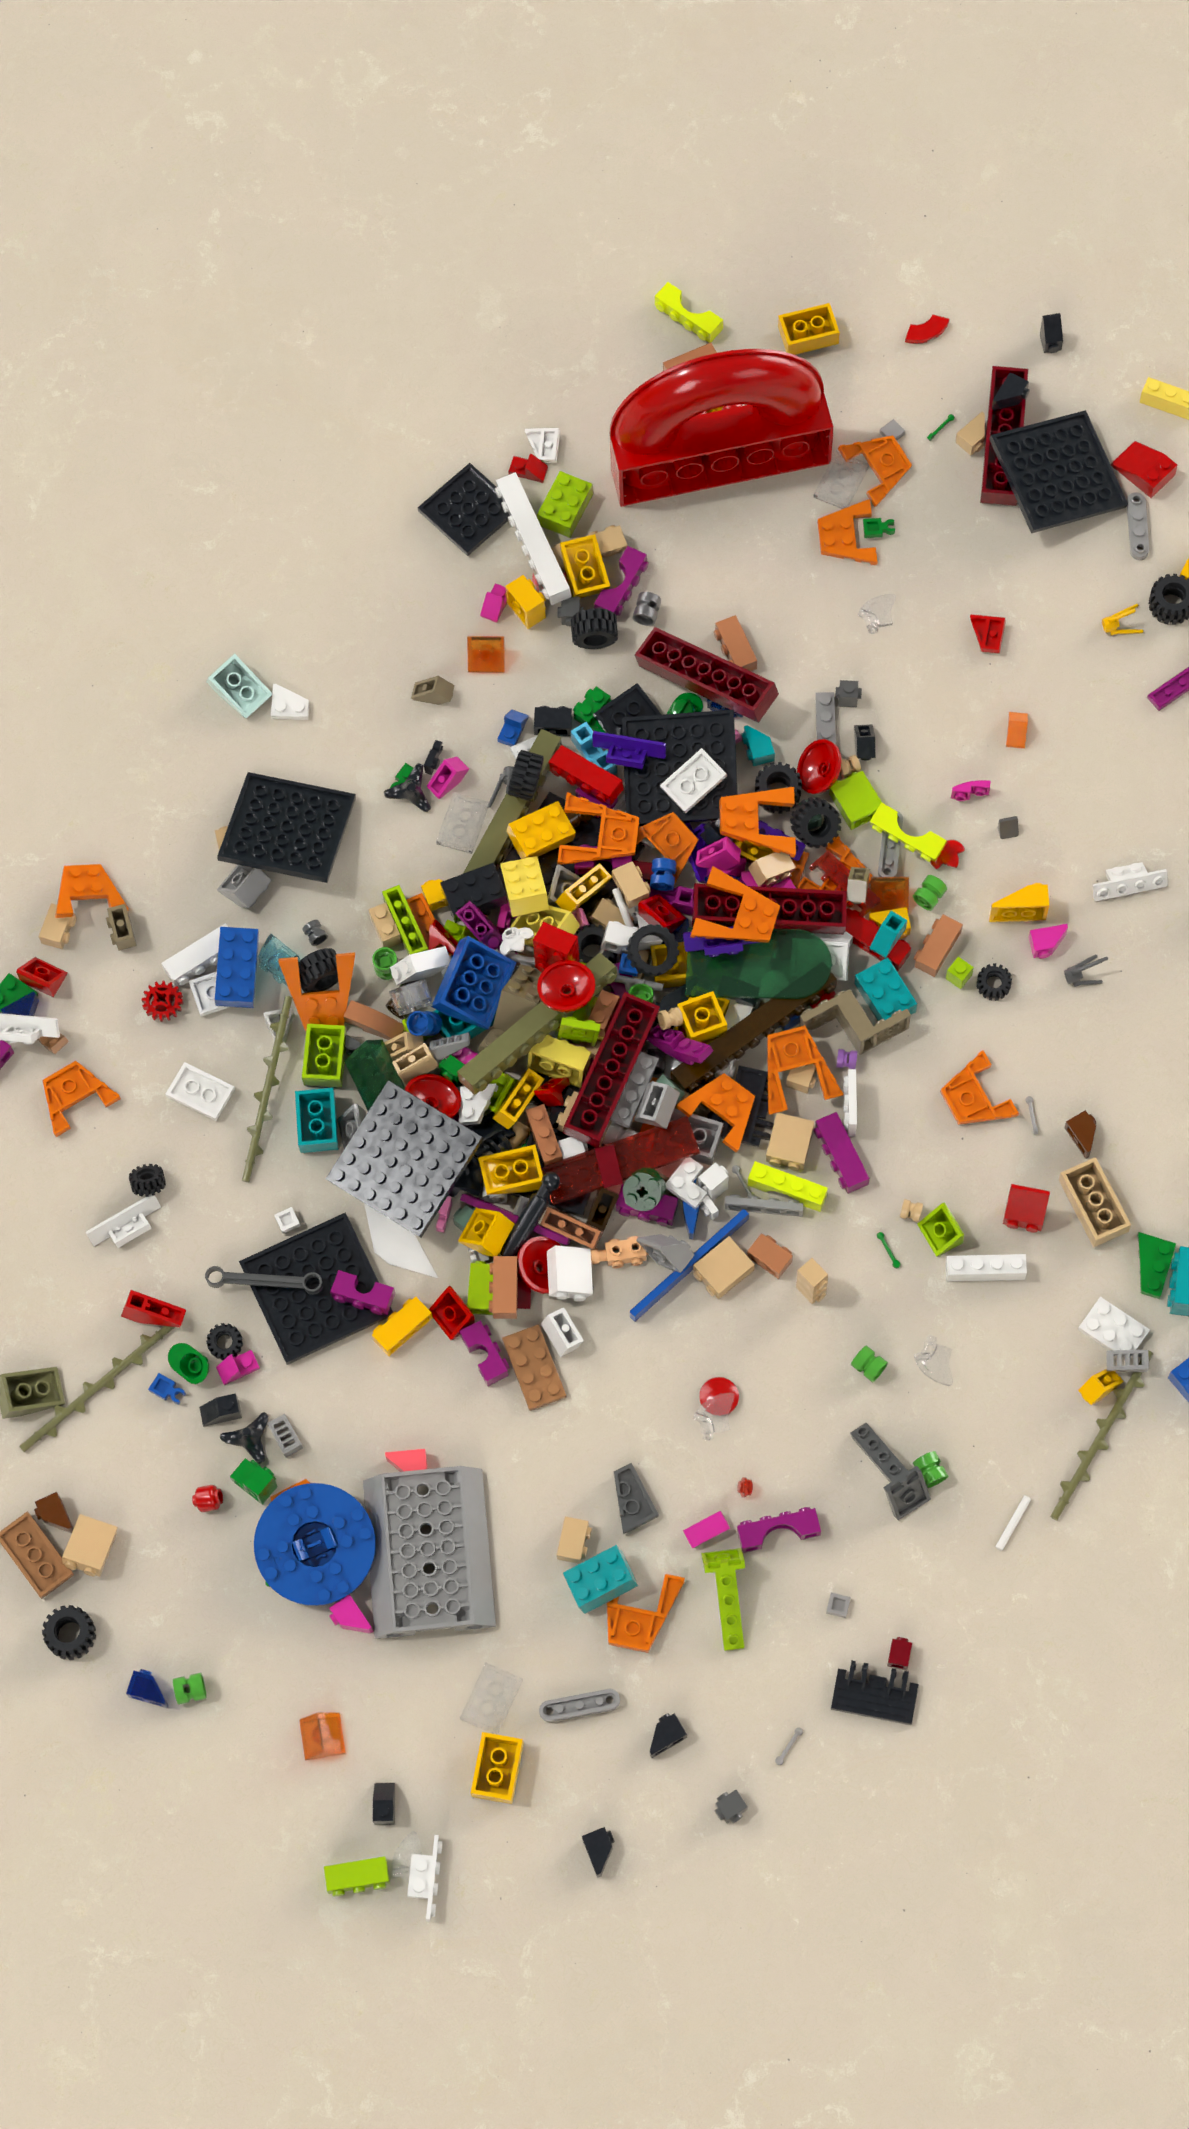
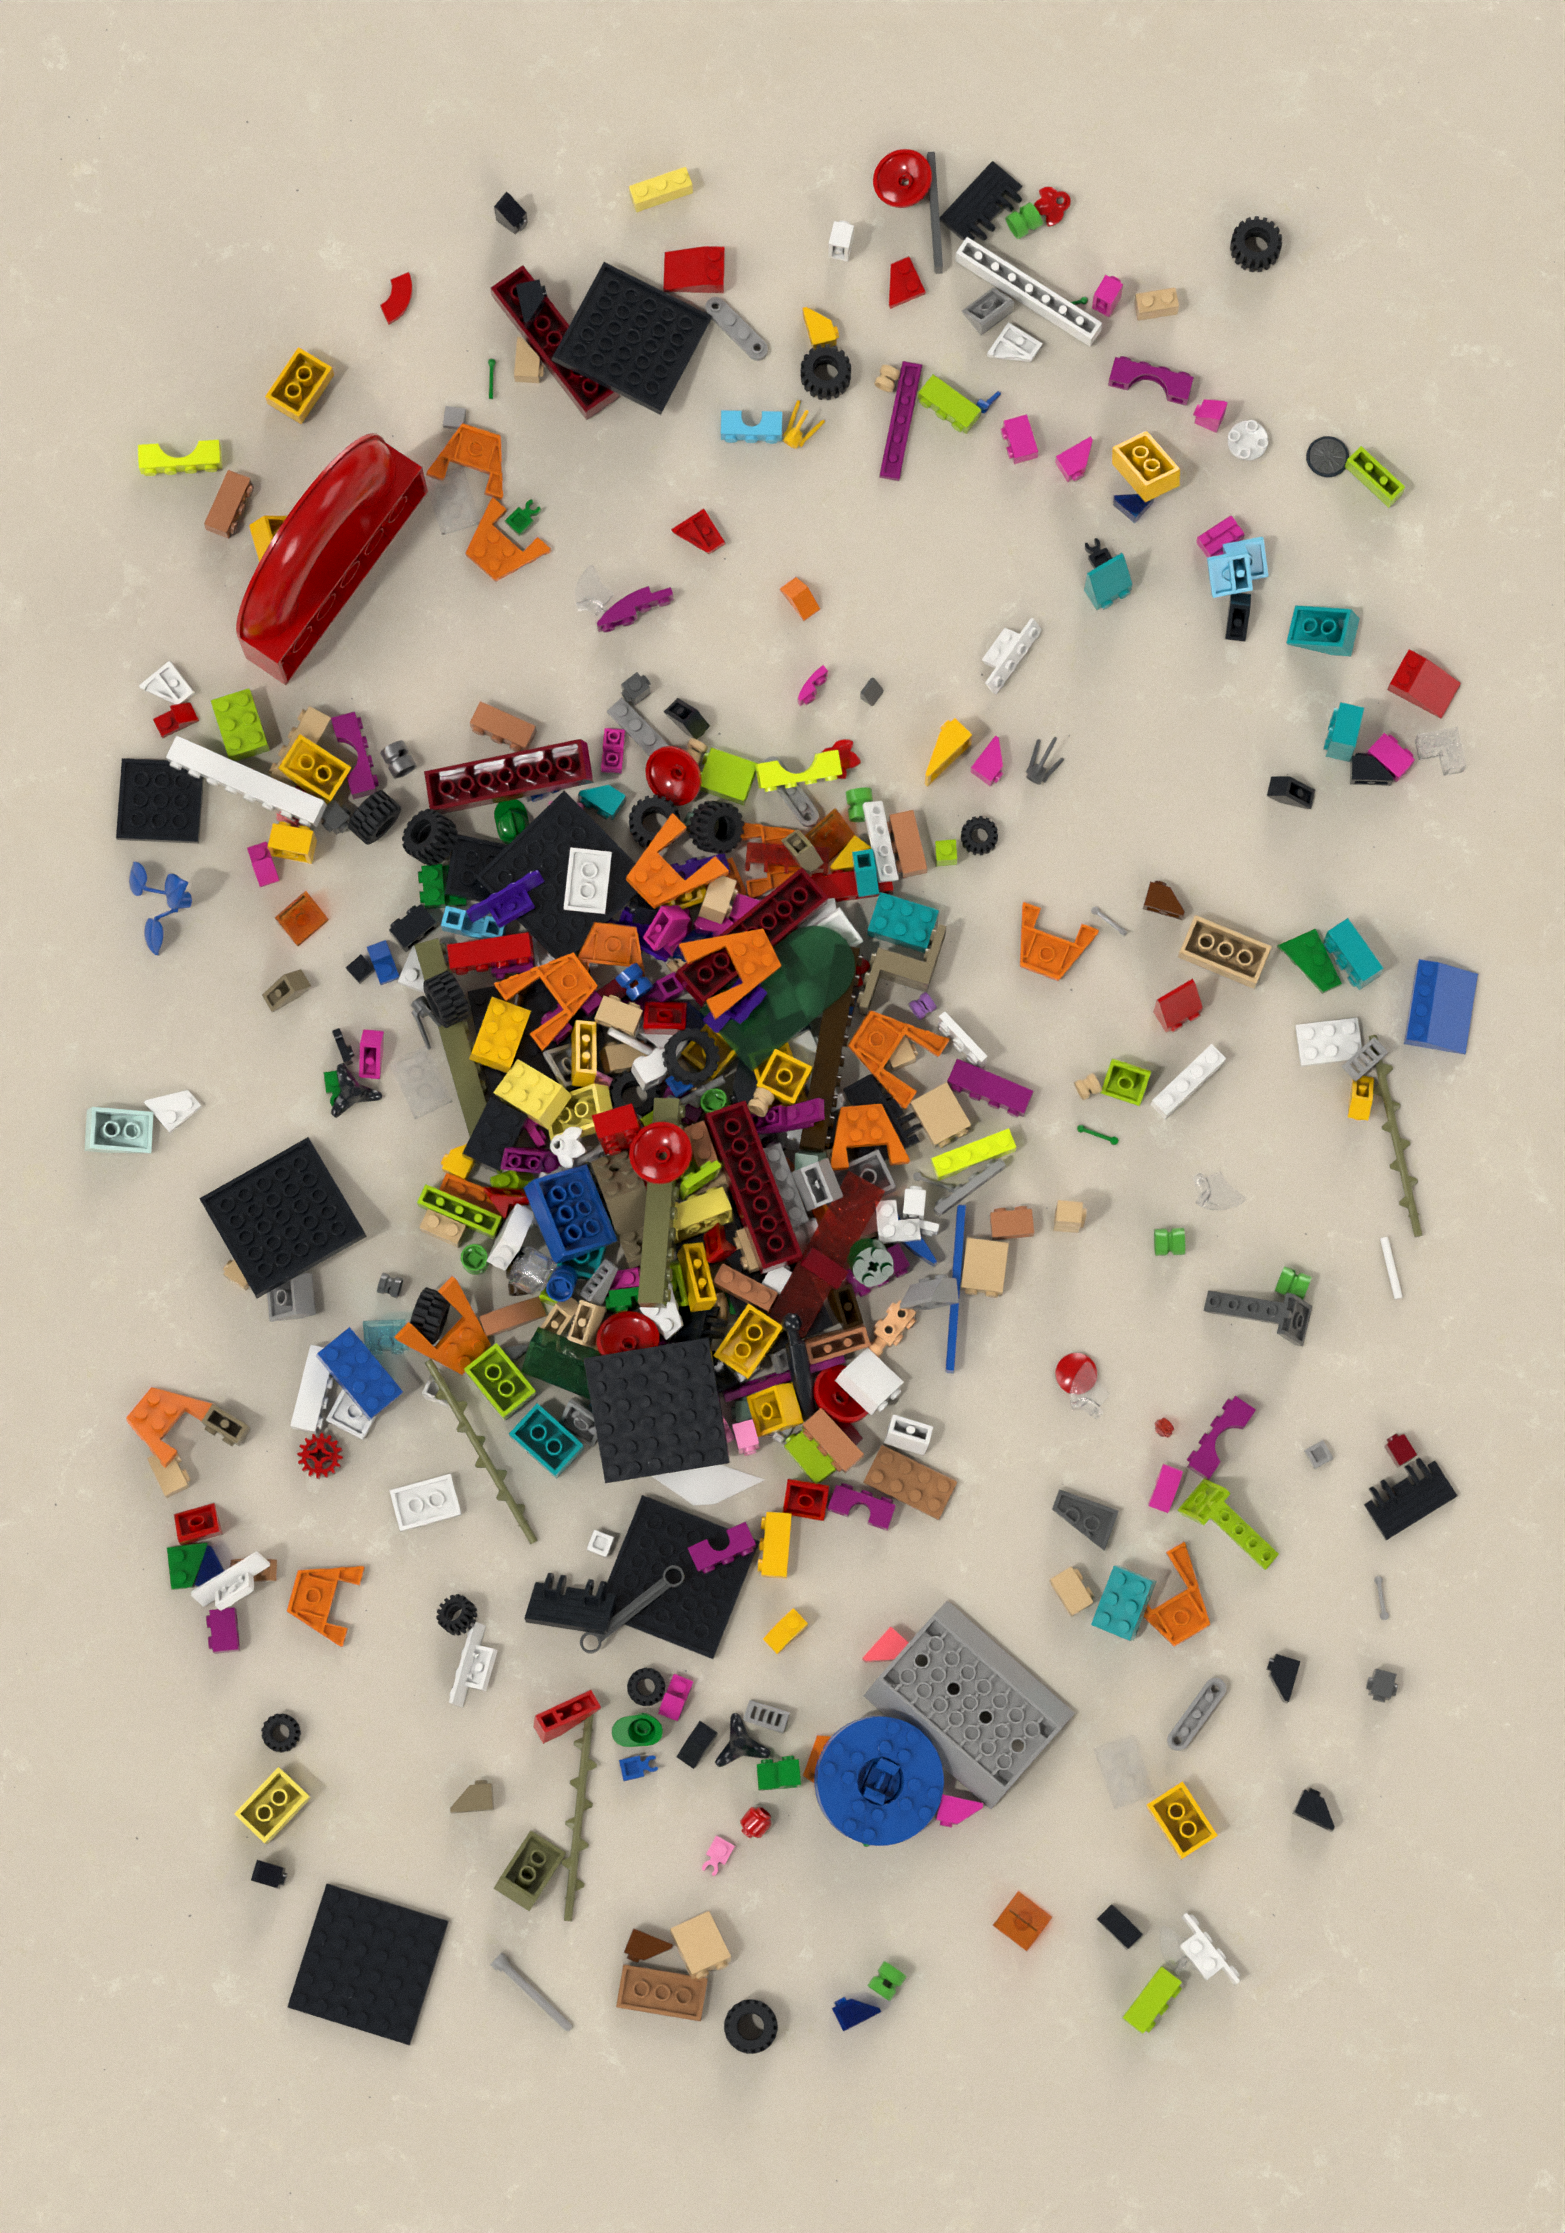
camera: 45 degrees left, 10 degrees up
(41, 1311) = (475, 1798): none -> dark tan slope
(165, 1497) = (719, 1852): none -> bright pink plate
(227, 1247) = (572, 1611): none -> black hinge
(353, 1389) = (785, 1631): none -> yellow slope
(417, 576) = (176, 899): none -> blue plant
(448, 1234) = (746, 1437): none -> bright pink brick
(493, 719) = (360, 969): none -> black plate
(618, 671) = (429, 837): none -> black tyre
(796, 721) = (613, 750): none -> dark pink slope
(891, 638) = (625, 609): none -> magenta slope
(919, 925) = (880, 841): none -> white bracket
(1097, 604) = (767, 430): none -> medium azure arch

